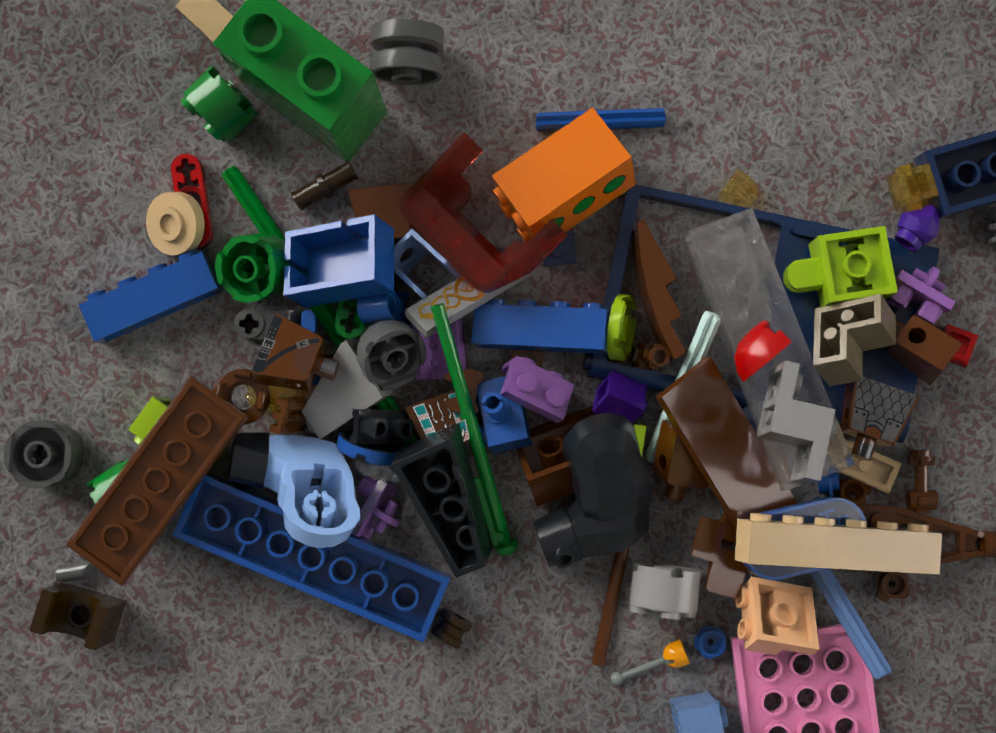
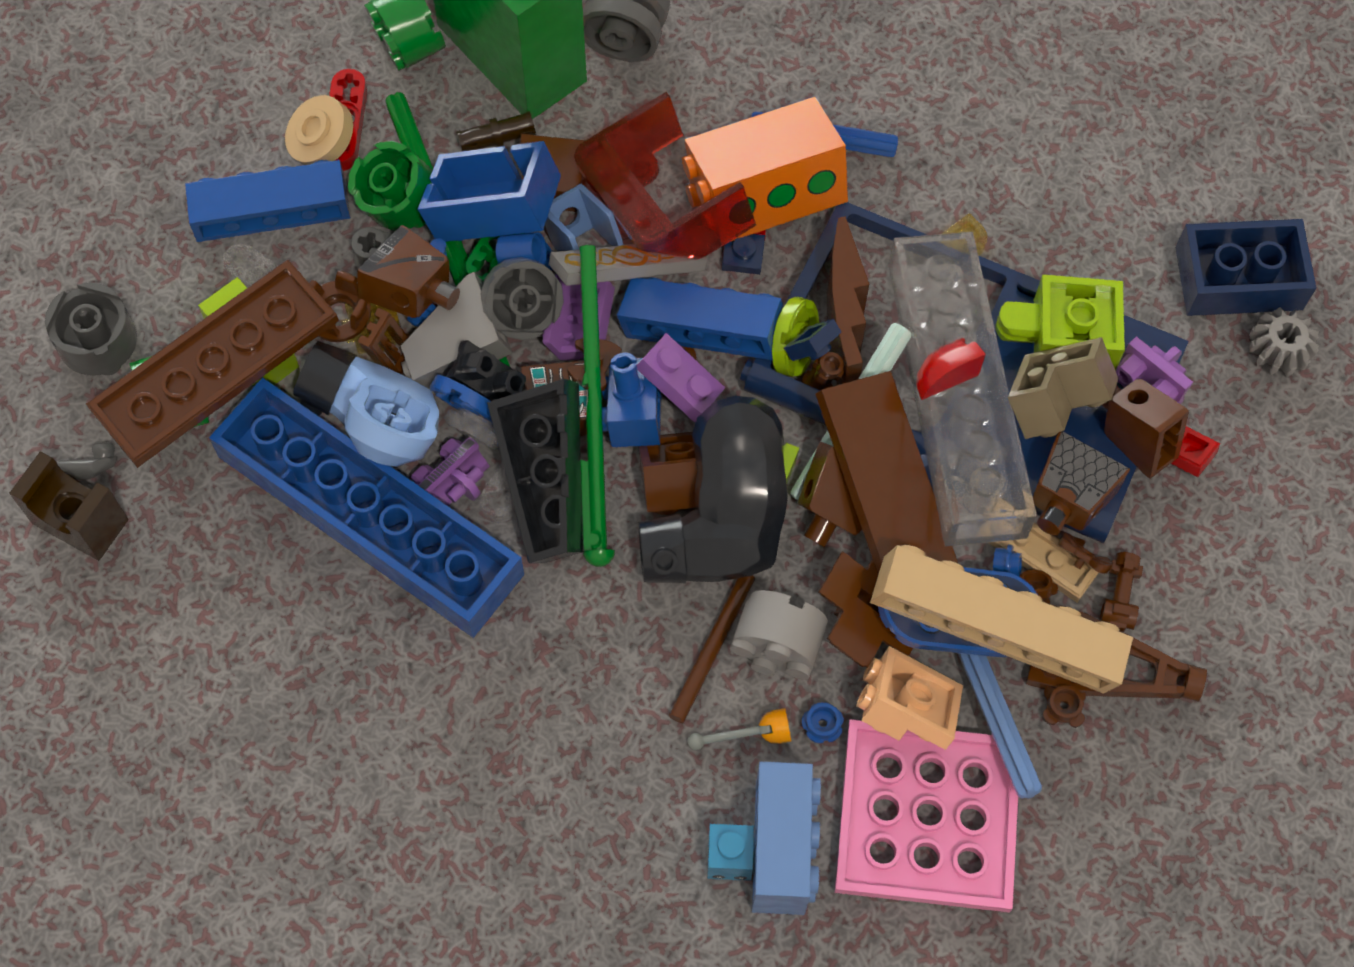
camera: 10 degrees right, 20 degrees down
(451, 628) = (508, 630): dark brown wheel -> none
(621, 396) = (787, 408): dark purple brick -> none
(641, 341) = (813, 341): none -> dark blue plate
(797, 424) = (973, 439): light grey bracket -> none
(900, 464) = (1076, 546): none -> reddish brown piece
(911, 186) = (1166, 267): clear yellow brick -> none
(918, 227) = (1164, 307): dark purple rock -> none

